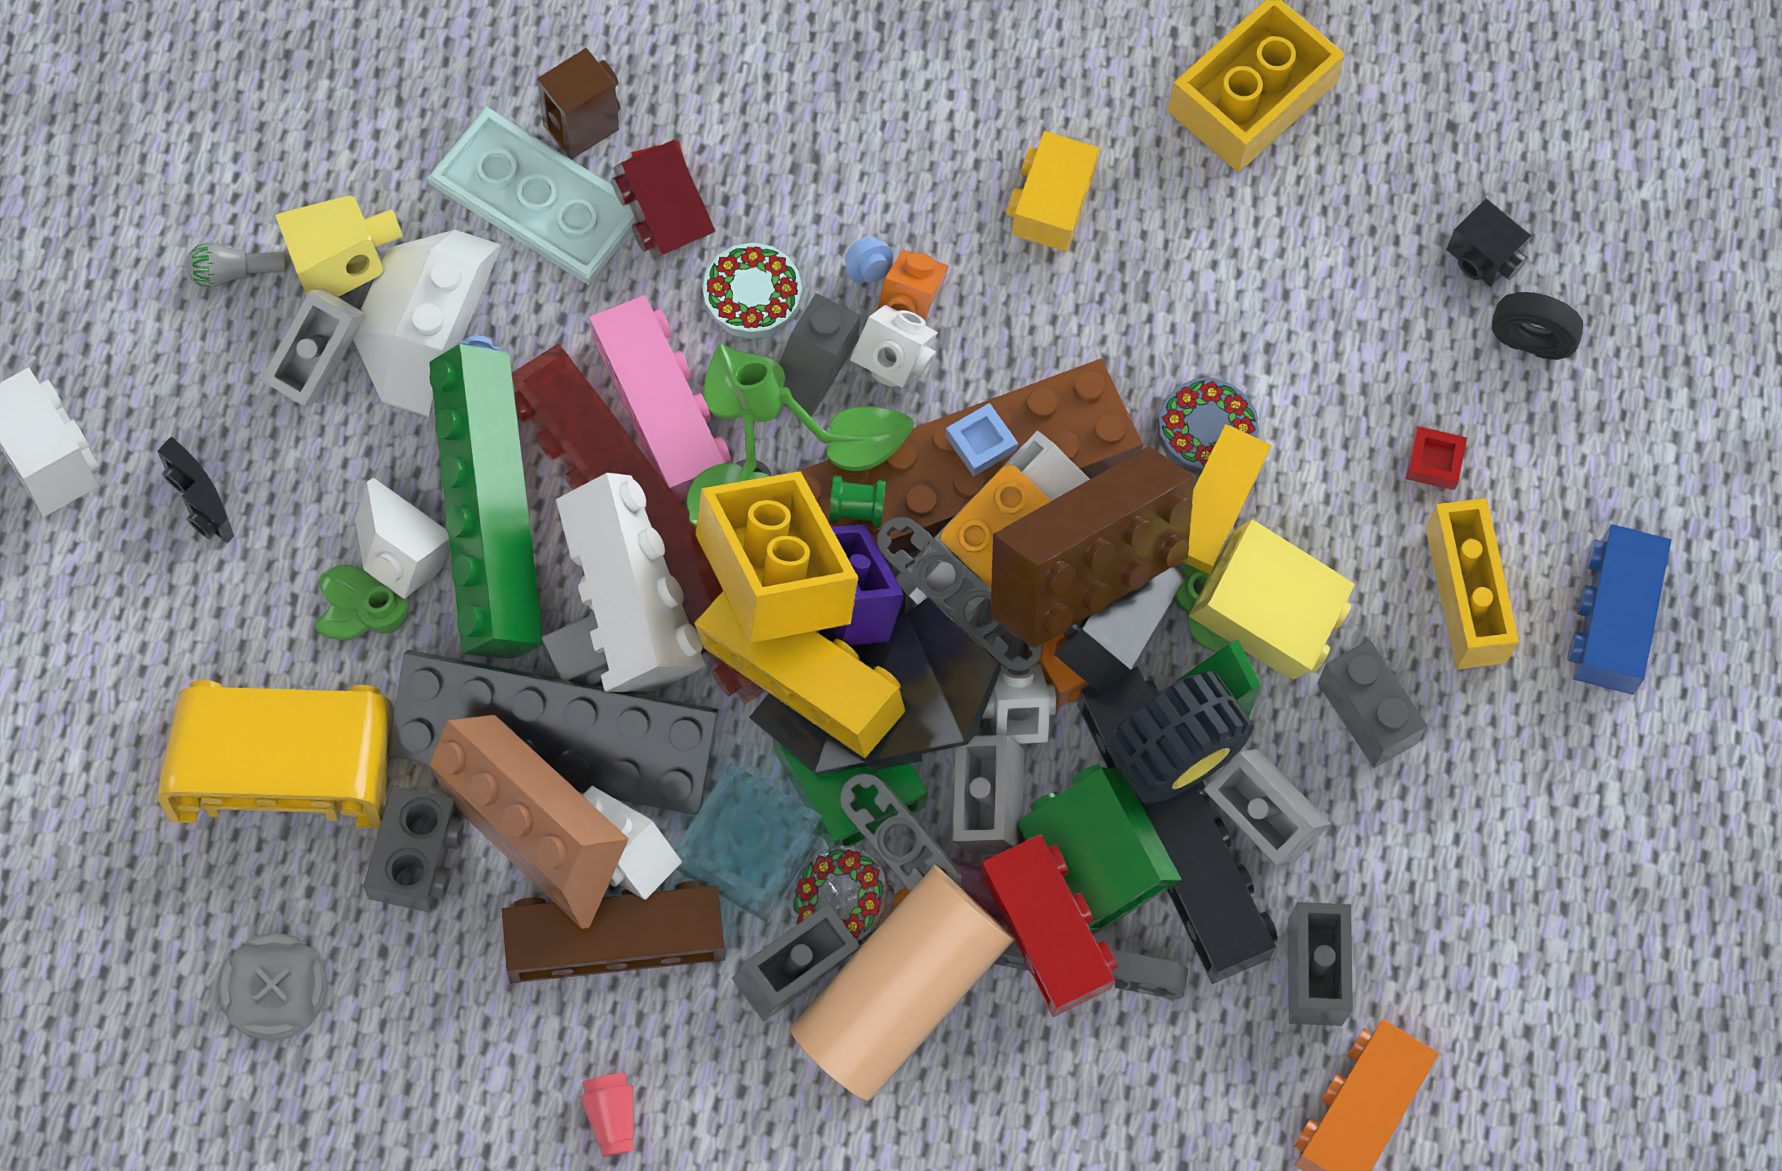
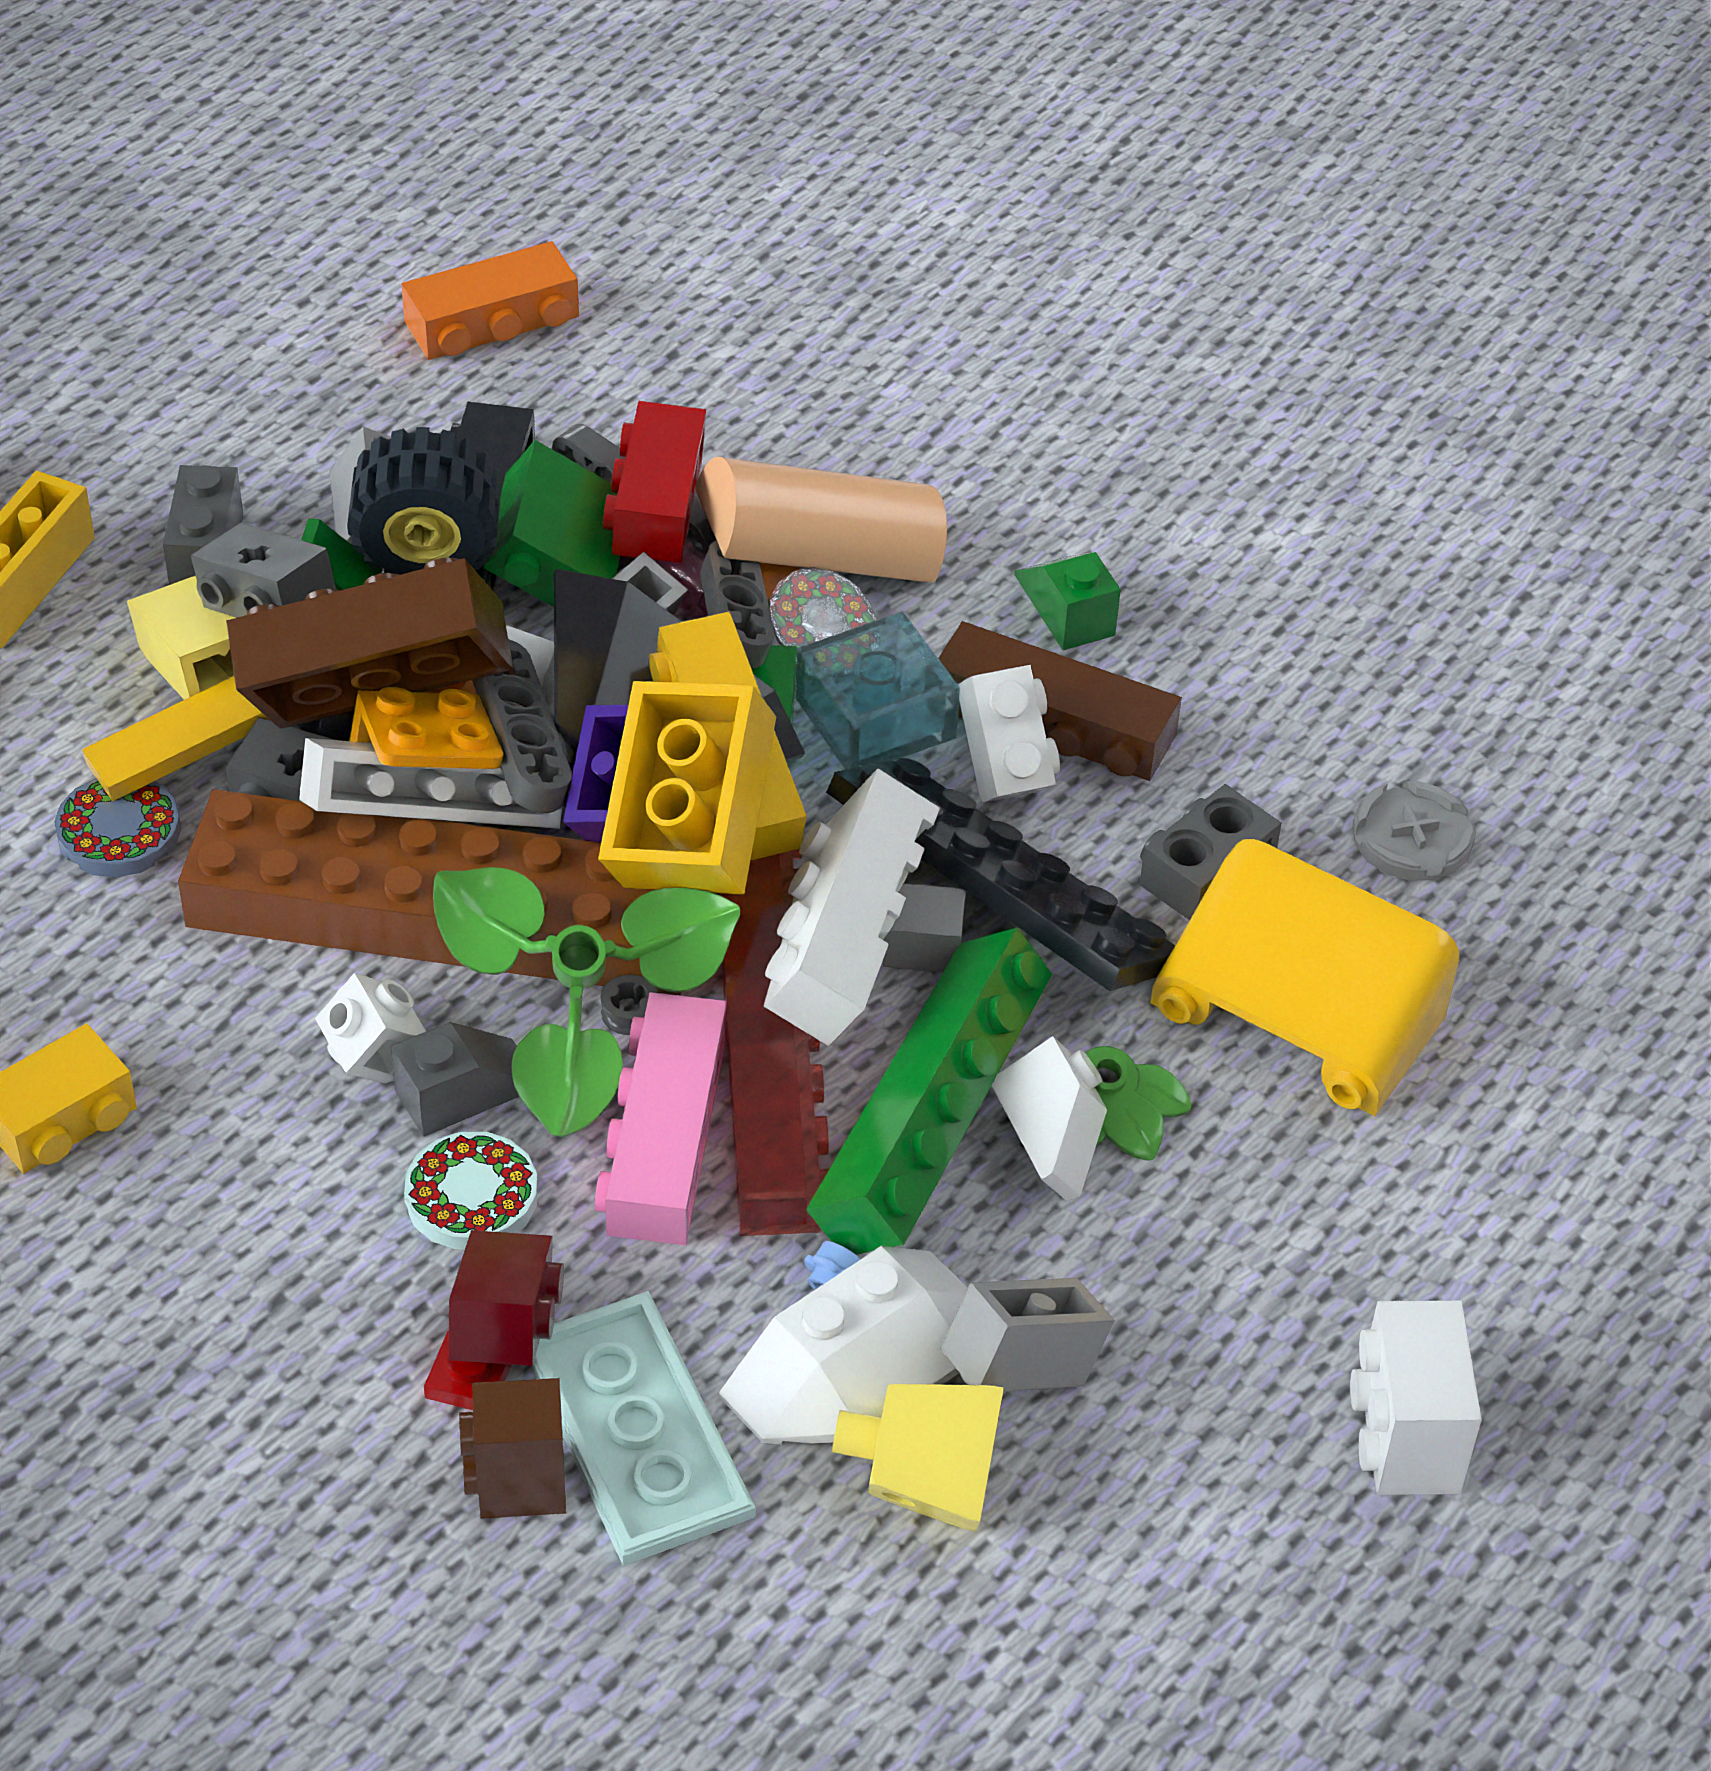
camera: 145 degrees left, 20 degrees down
(198, 491) = (1247, 1277): black slope -> none
(215, 264) = (1081, 1536): light grey piece -> none
(529, 813) = (1084, 758): nougat slope -> none
(610, 1112) = (1147, 593): coral cone -> none
(674, 1065) = (1073, 598): none -> green slope
(795, 962) = (907, 579): dark grey slope -> none
(857, 501) = (553, 844): green bush -> none
(868, 260) = (320, 1140): light blue plate -> none
(913, 283) = (296, 1091): orange bracket -> none
(981, 439) = (378, 836): light blue plate -> none
(1221, 604) = (258, 568): none -> dark grey brick
(1320, 964) = (439, 379): dark grey brick -> none

